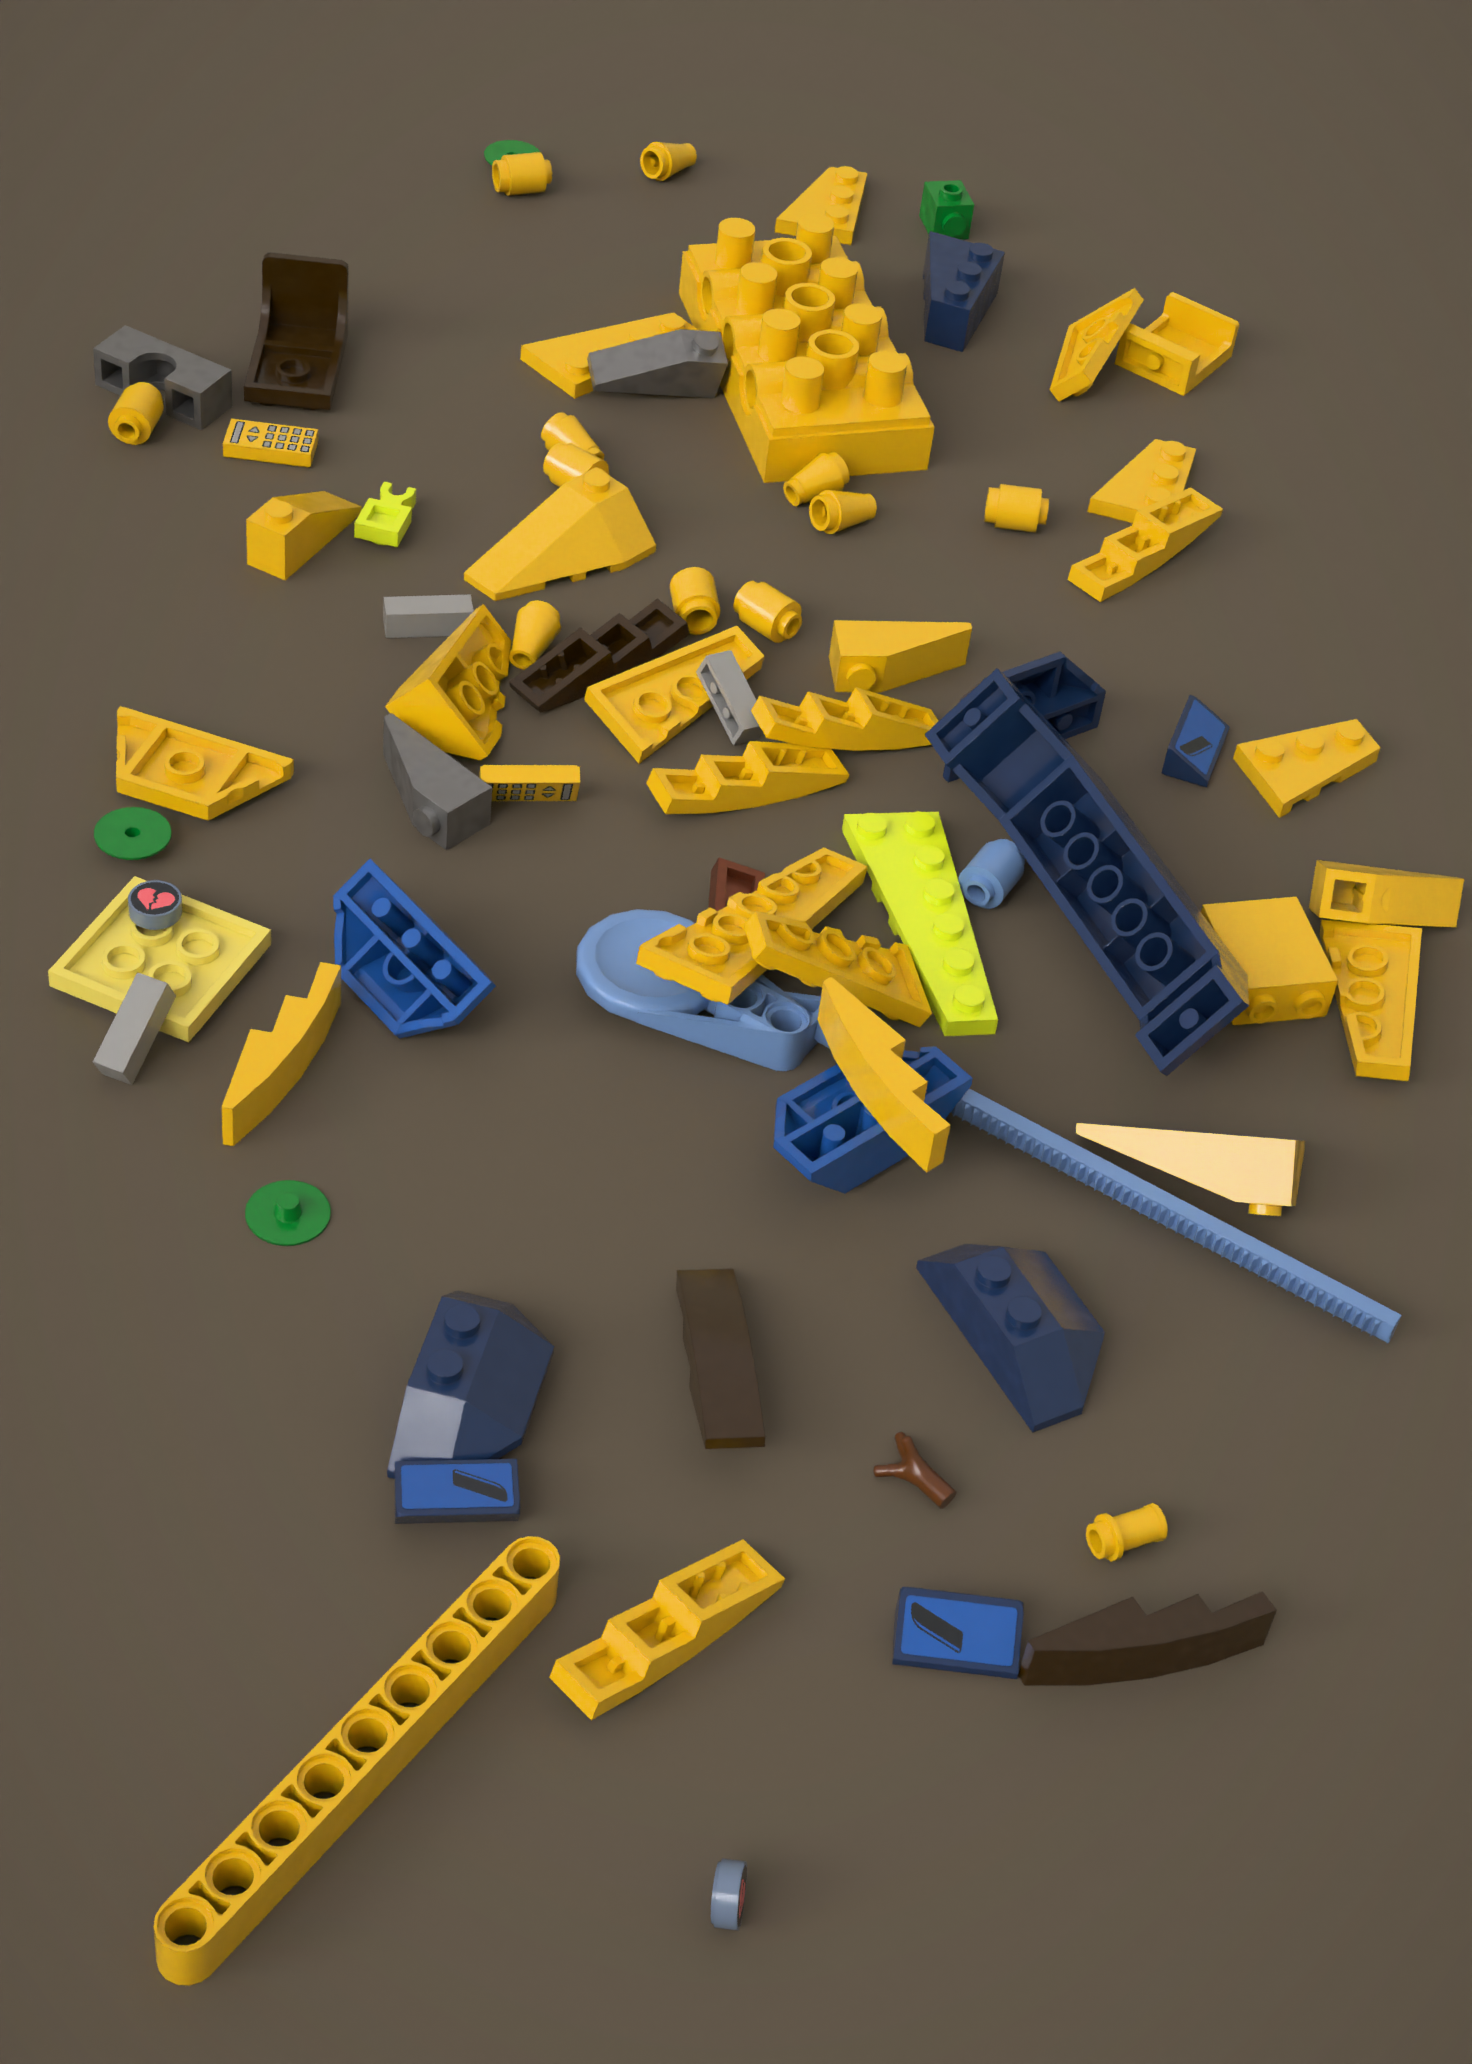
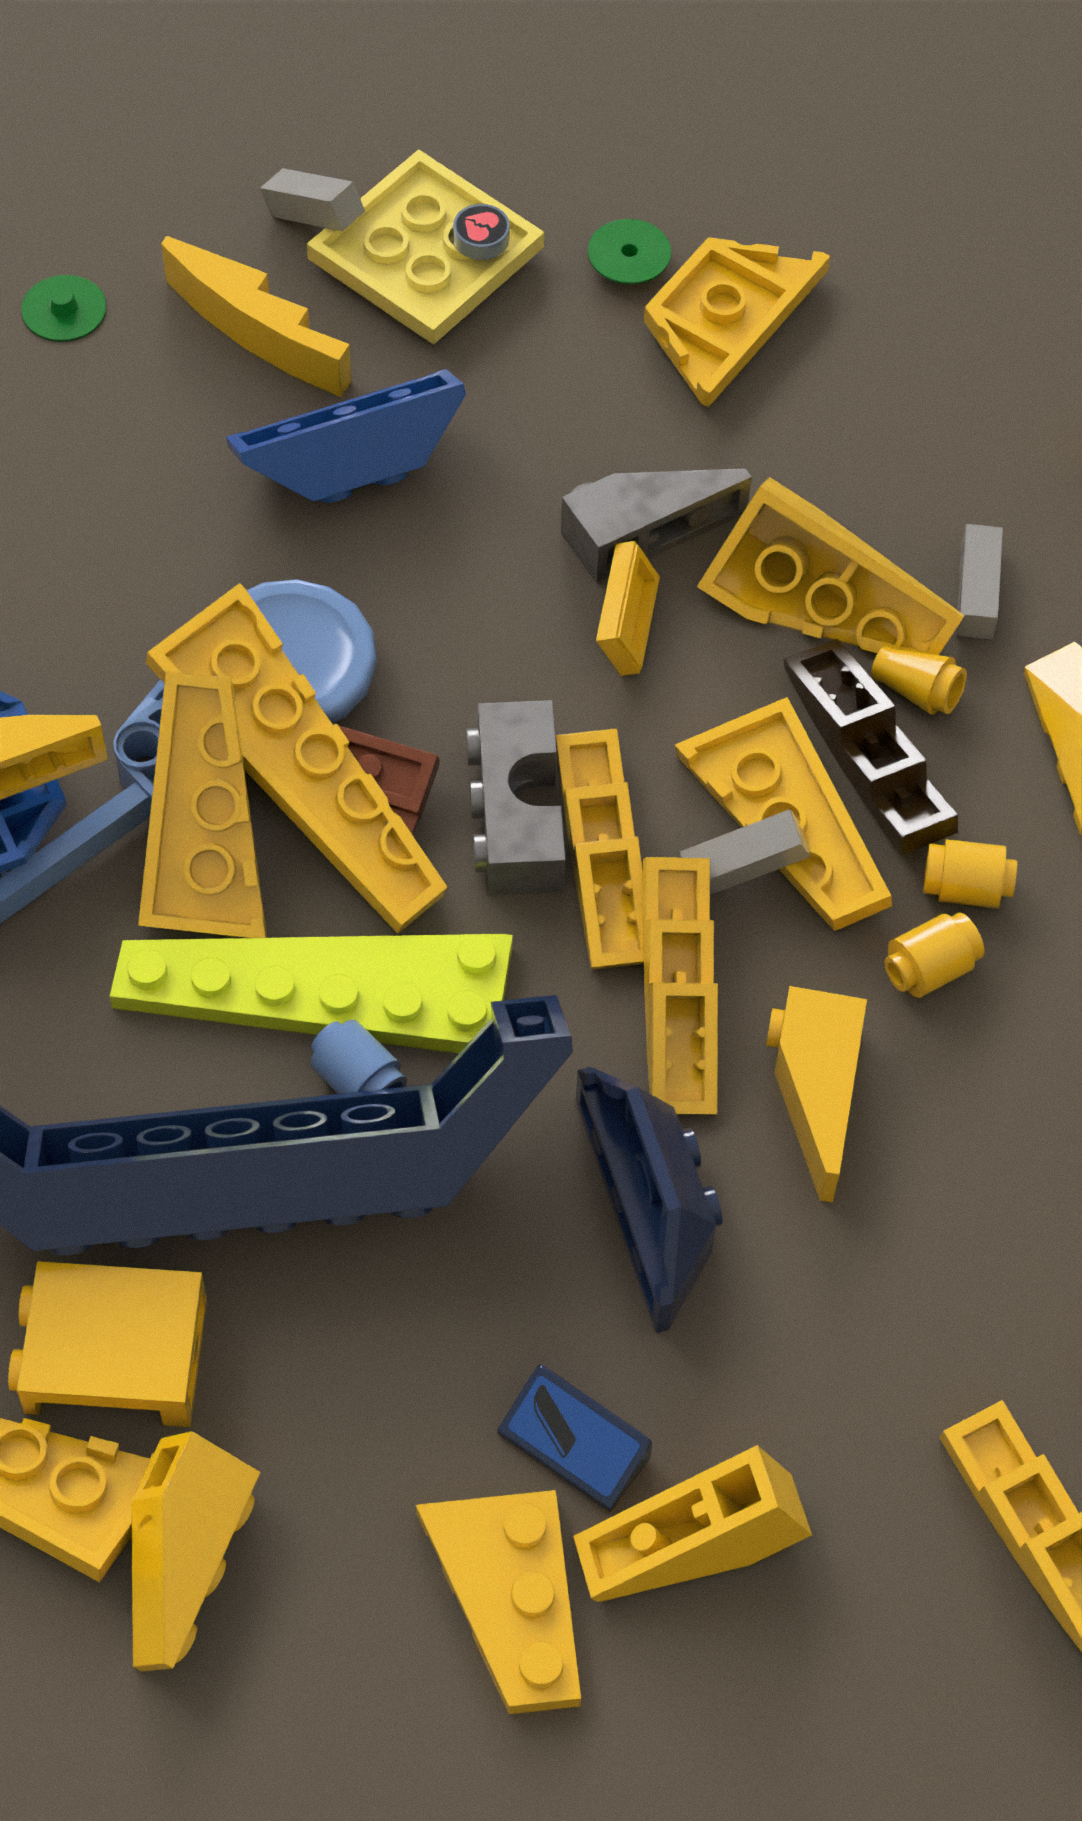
camera: 110 degrees right, 15 degrees up
(694, 833) = (520, 841): none -> flat silver arch
(1229, 675) = (695, 1528): none -> yellow slope

